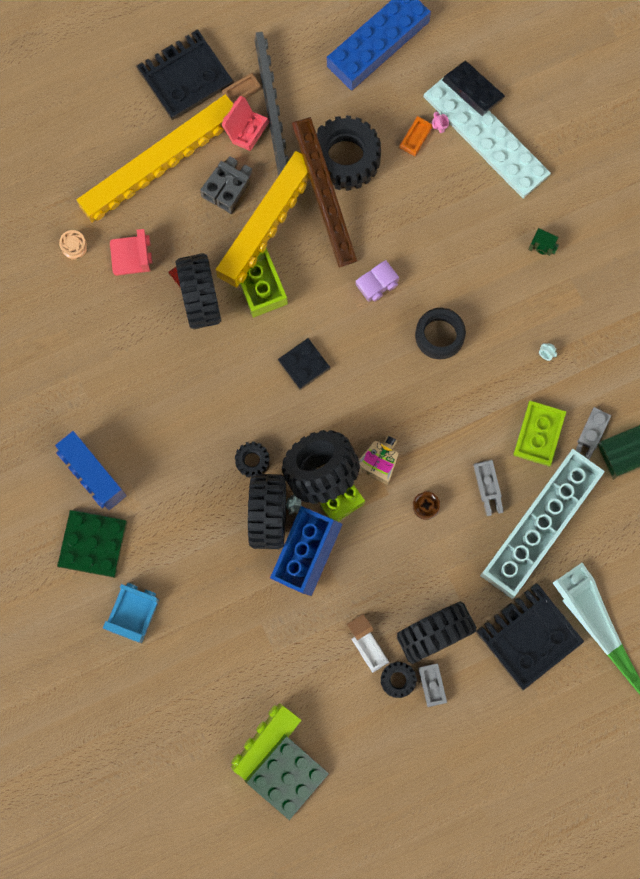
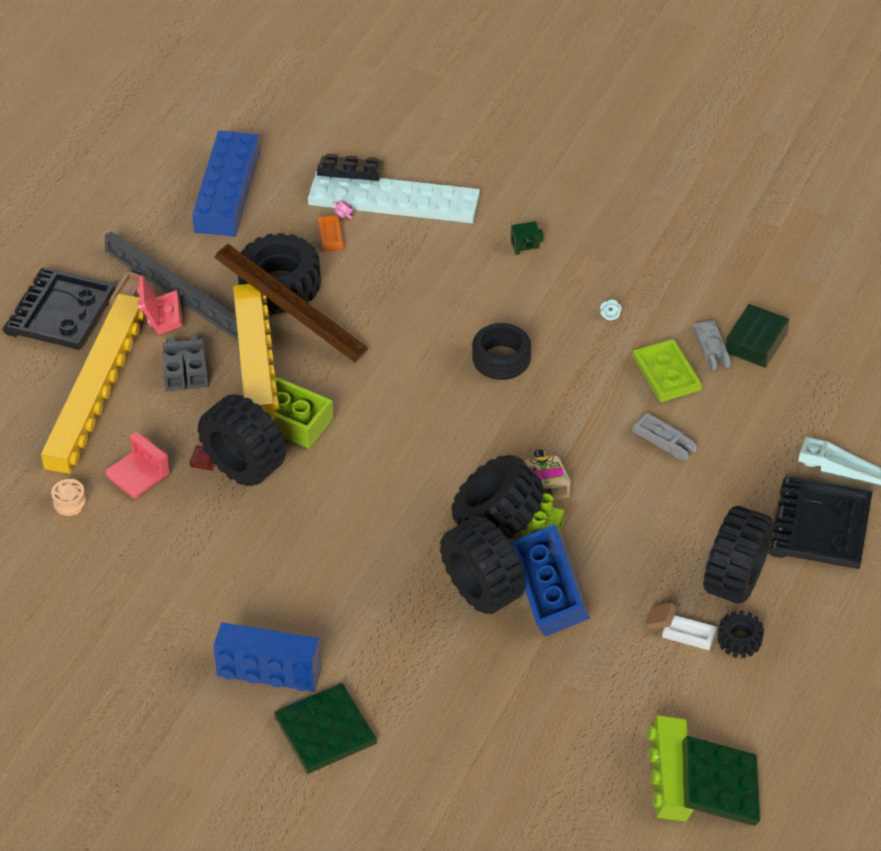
camera: 40 degrees left, 30 degrees down
(132, 613) = (424, 755): dark azure panel -> none
(252, 448) = (420, 564): black tyre -> none
(304, 364) = (395, 453): black plate -> none
(377, 281) = (403, 349): lavender brick -> none
(426, 505) = (622, 484): reddish brown wheel -> none
(432, 685) = (776, 617): light grey plate -> none
(542, 523) = (741, 429): light aqua brick -> none

